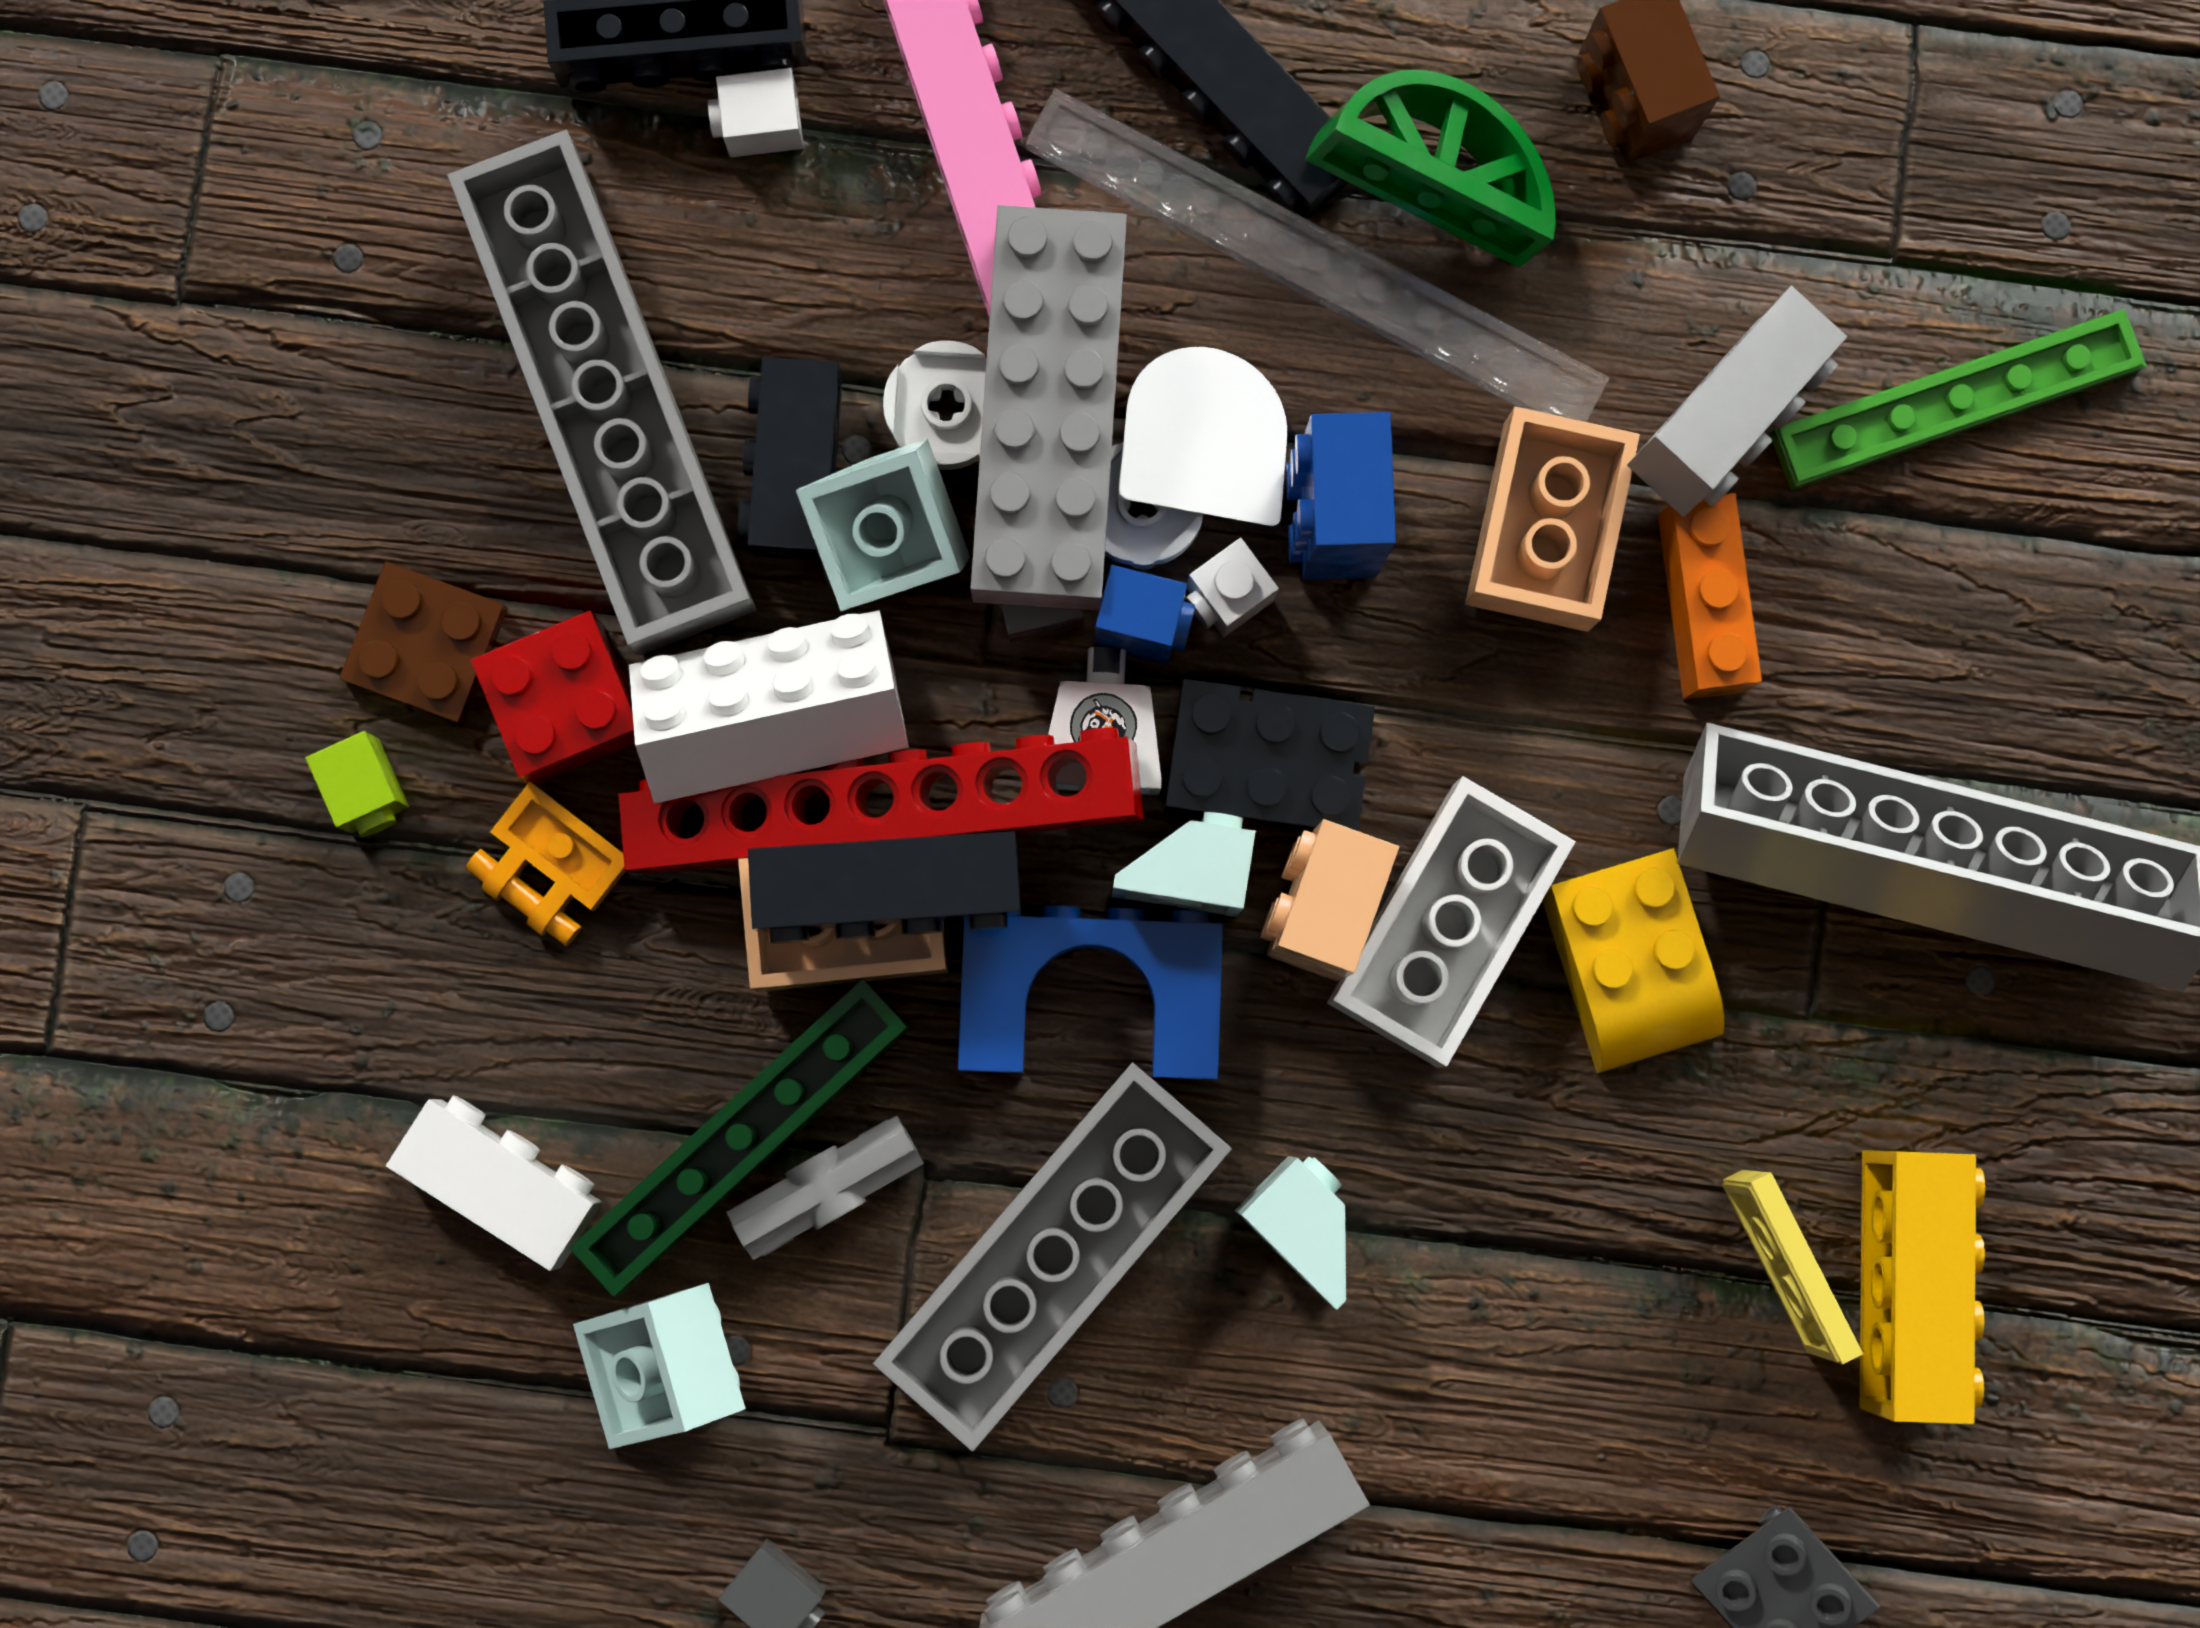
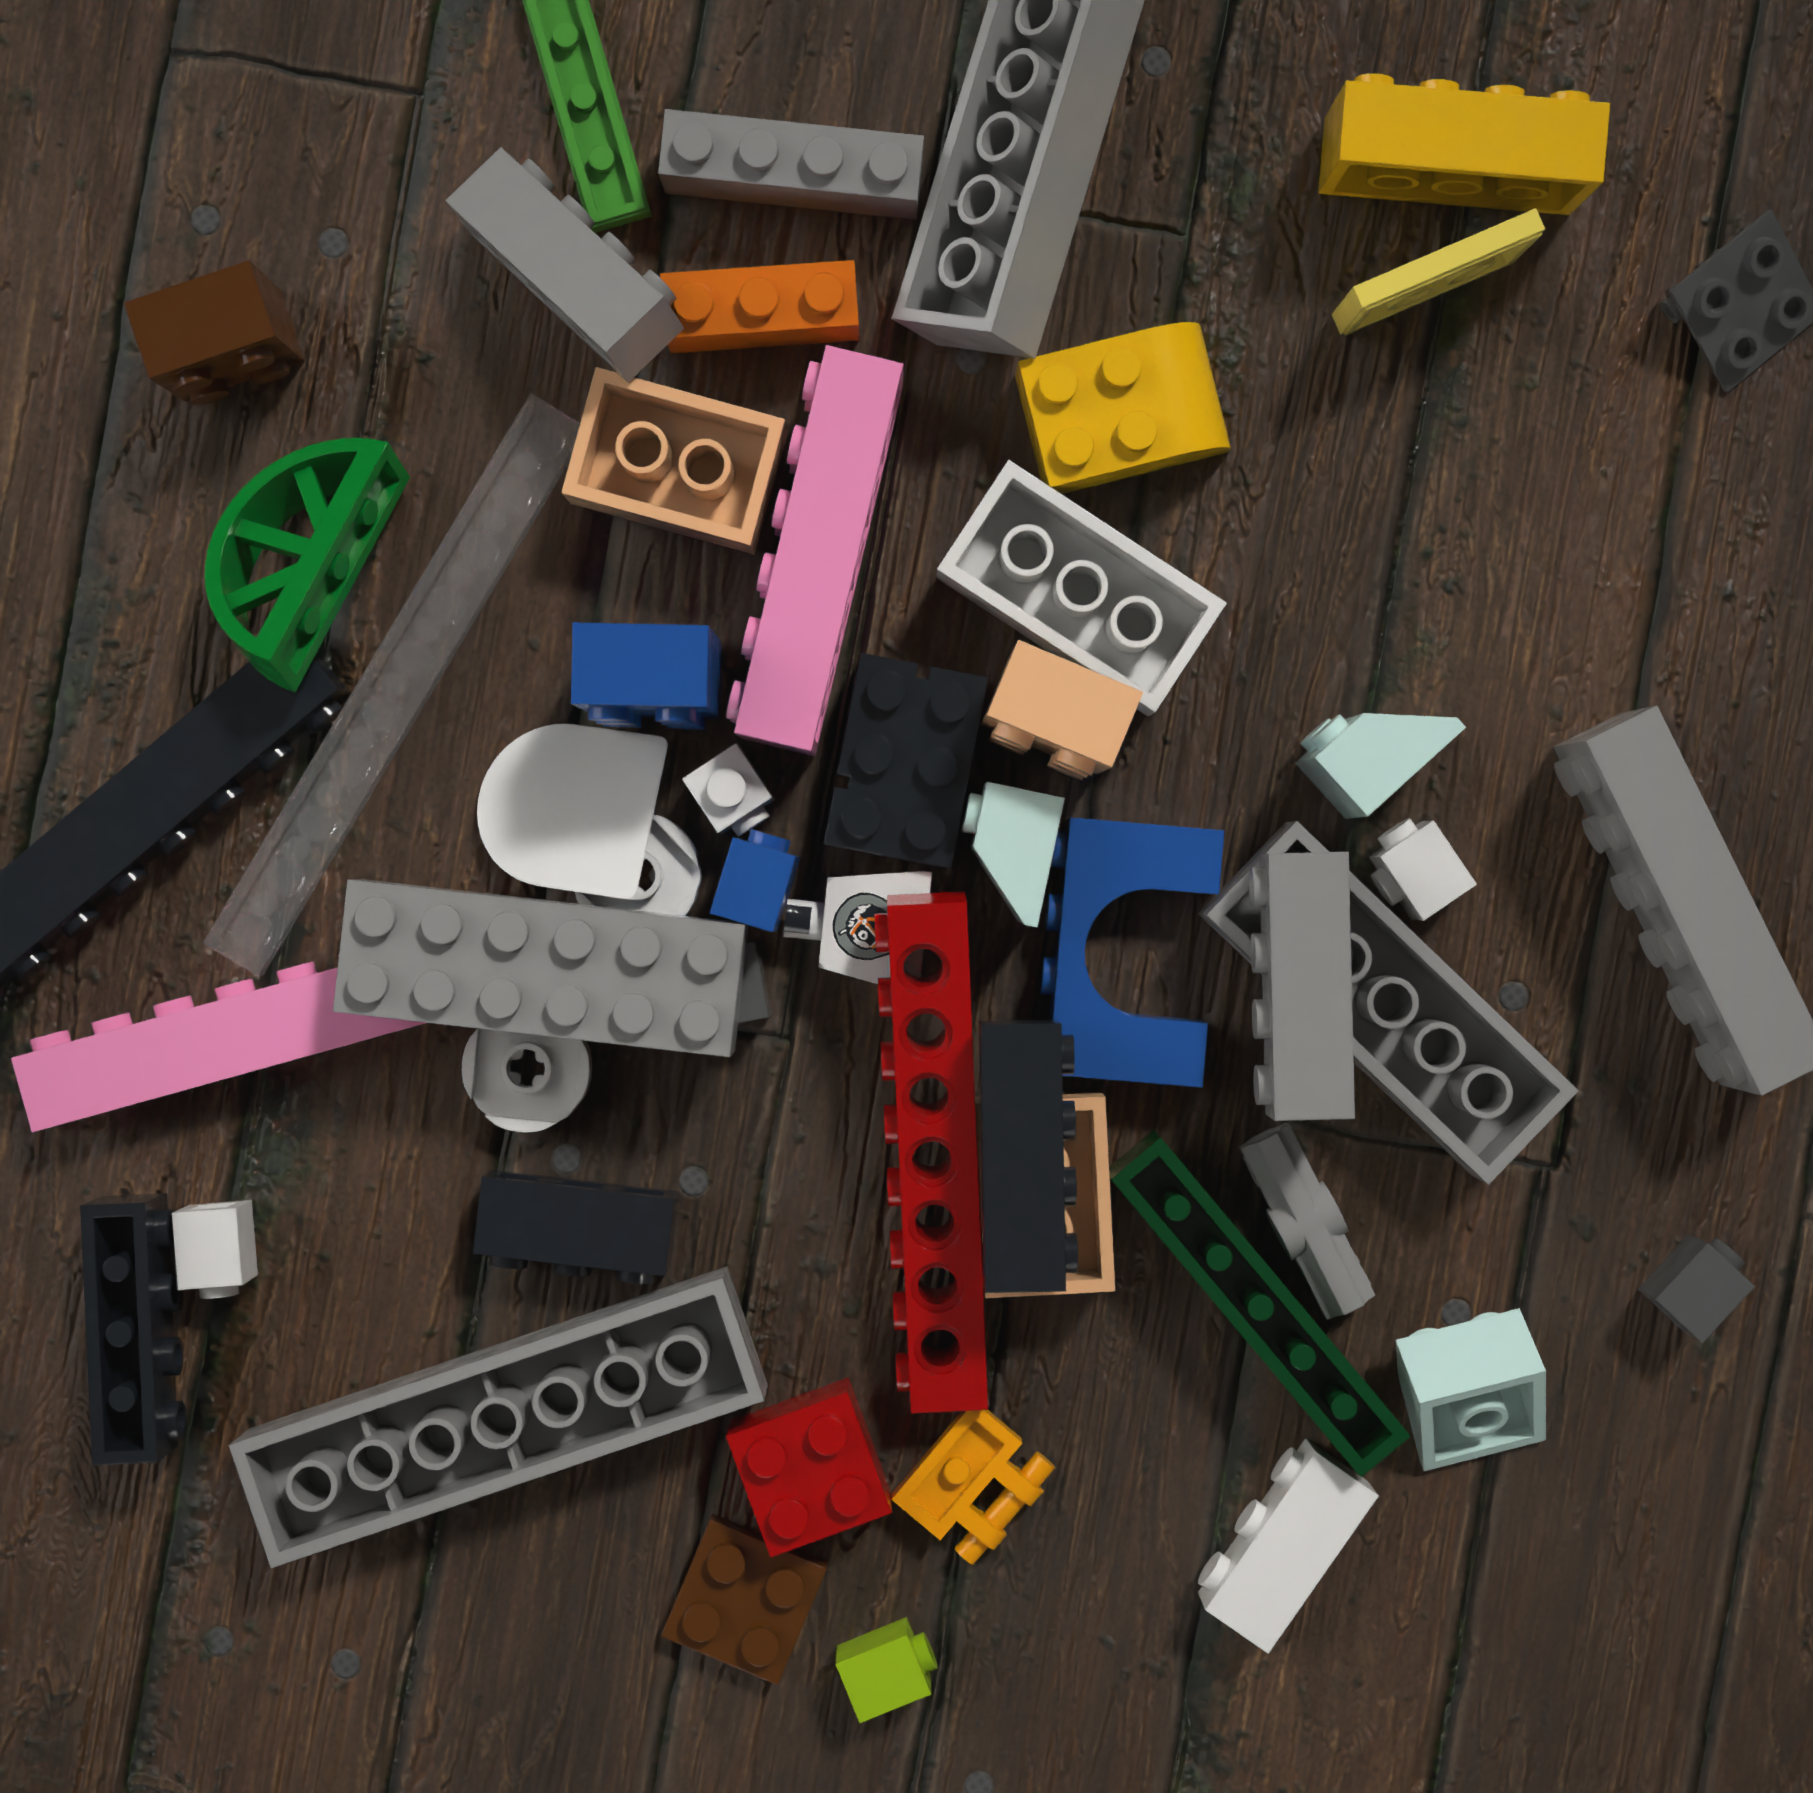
camera: 85 degrees left, 5 degrees up
(766, 706) = (831, 1263): white brick -> none
(884, 525) = (651, 1136): light aqua slope -> none
(1068, 1161) = (1305, 986): none -> light grey brick
(1188, 1282) = (1419, 869): none -> white brick
(1472, 660) = (819, 549): none -> bright pink brick
(1851, 620) = (791, 164): none -> light grey brick

